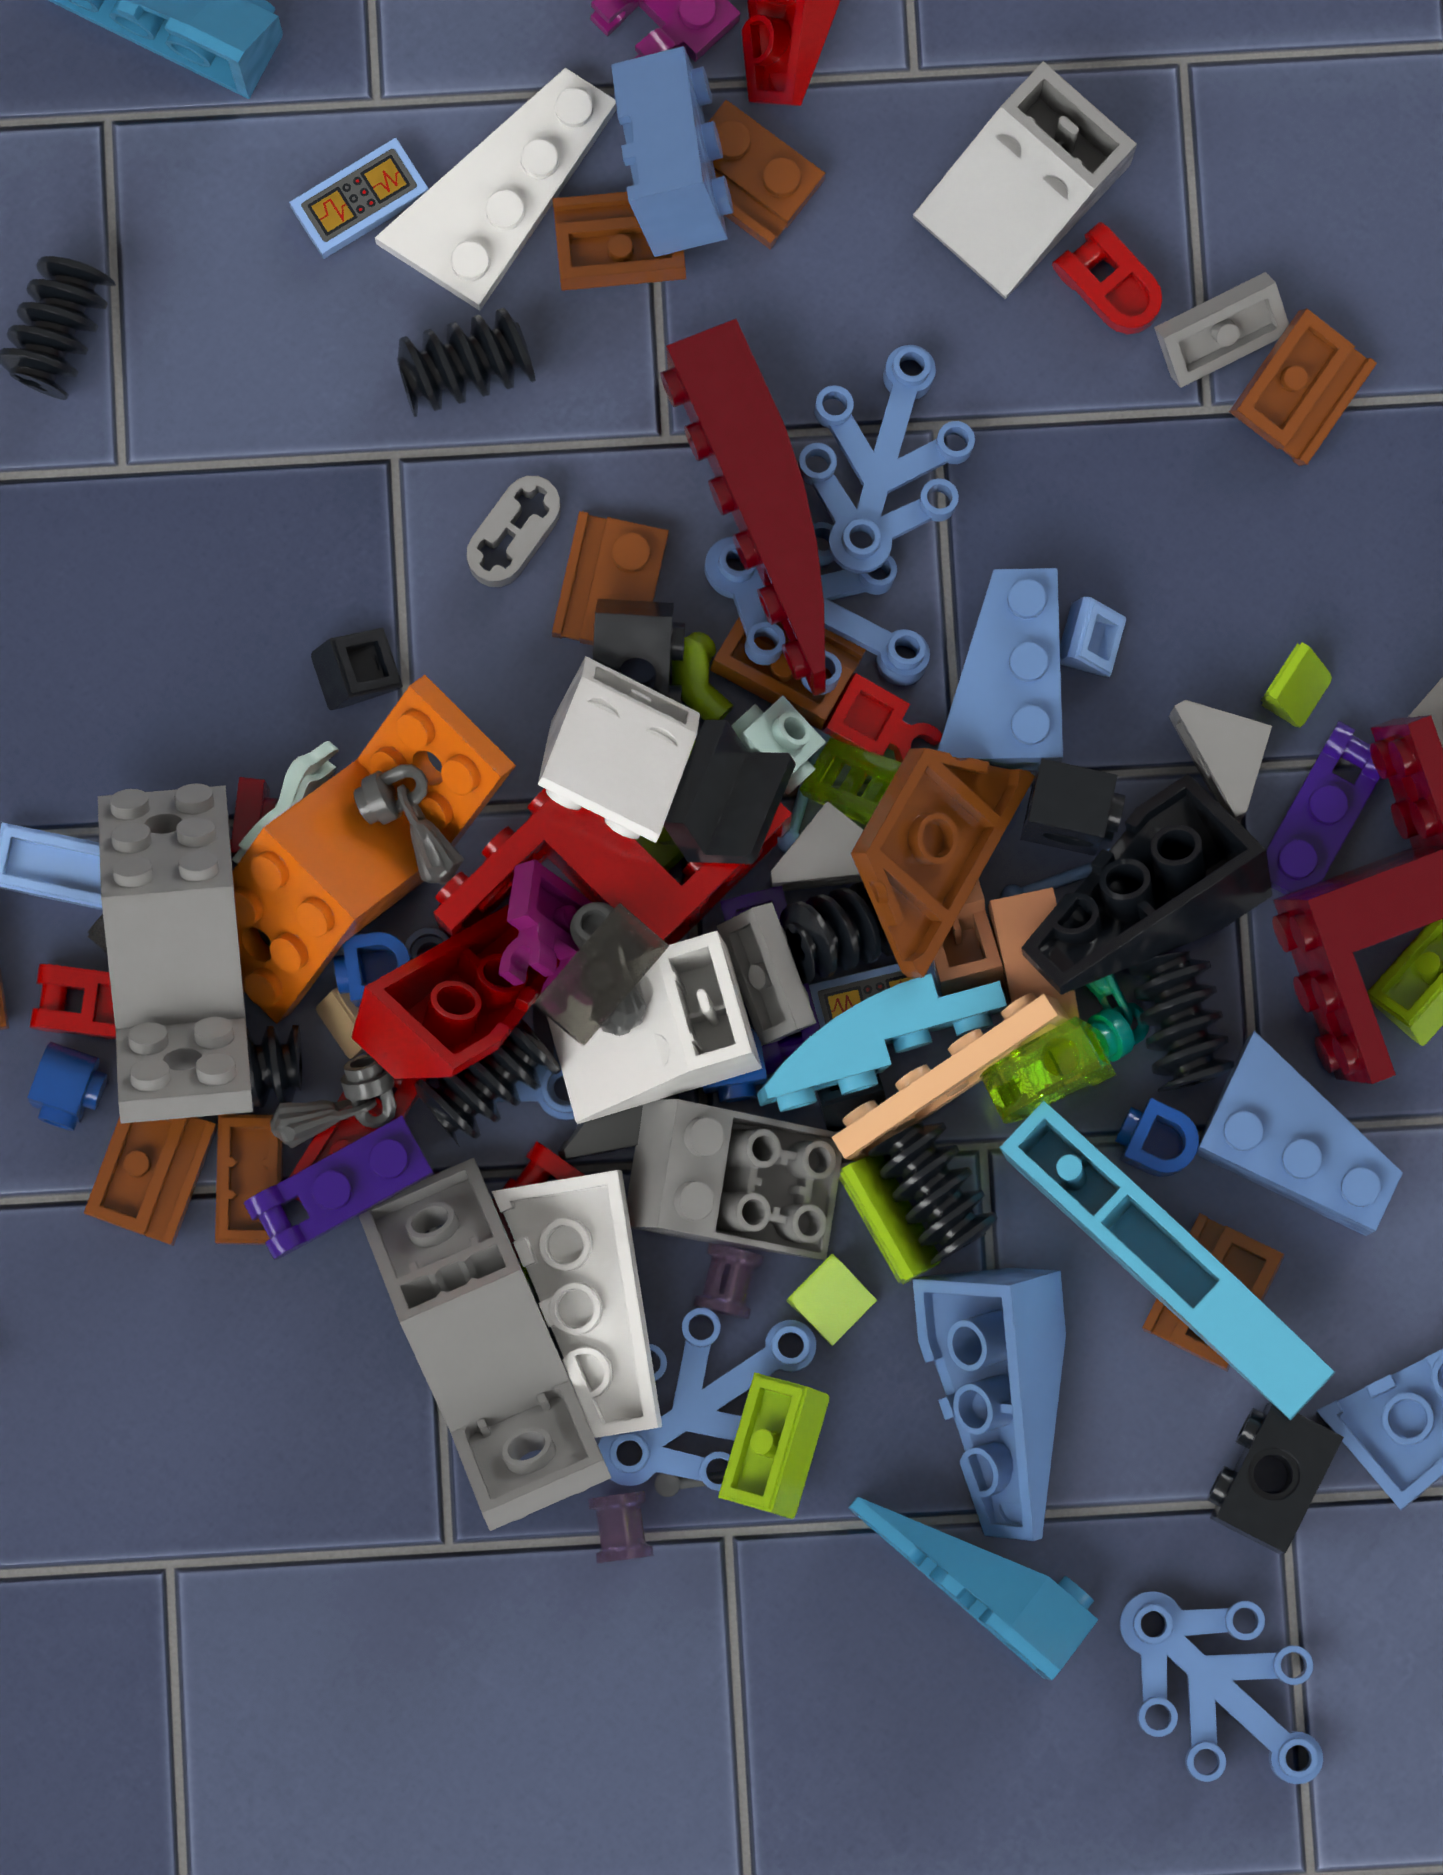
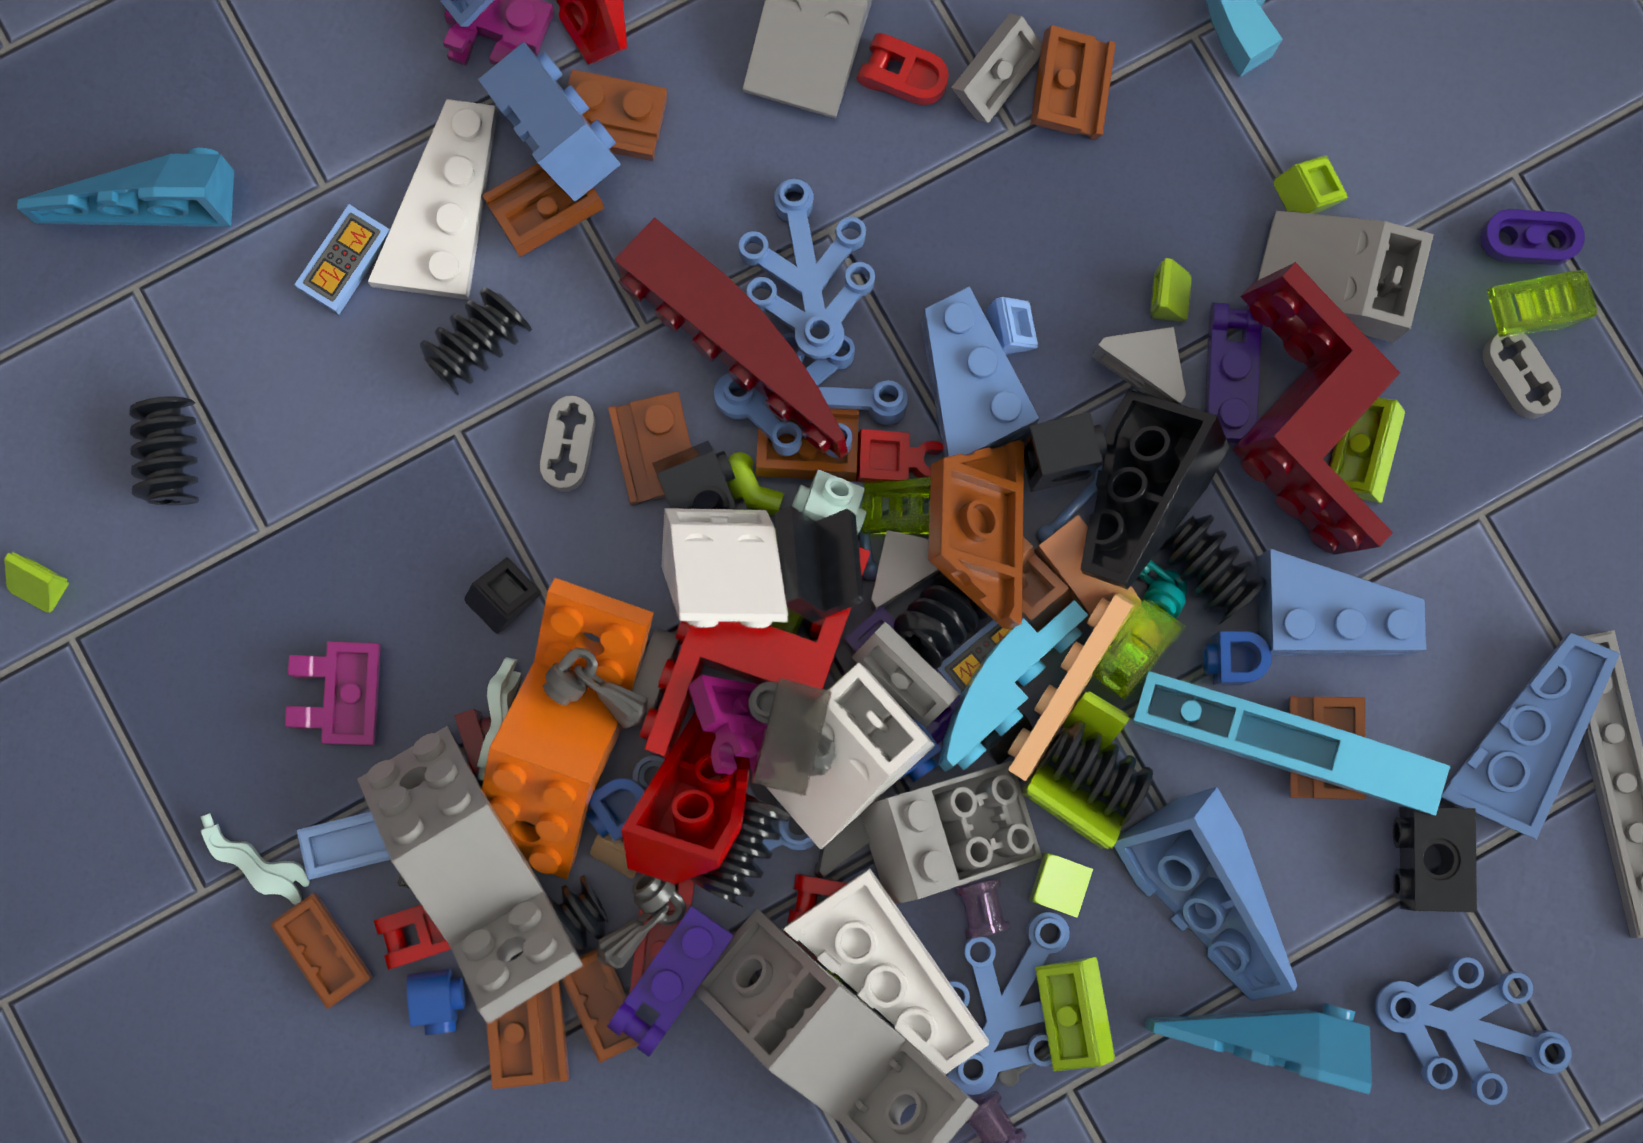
camera: 30 degrees left, 0 degrees up
(133, 697) = (349, 693): none -> magenta plate
(506, 811) = (660, 648): none -> light grey beam
(965, 1129) = (1098, 717): none -> lime slope

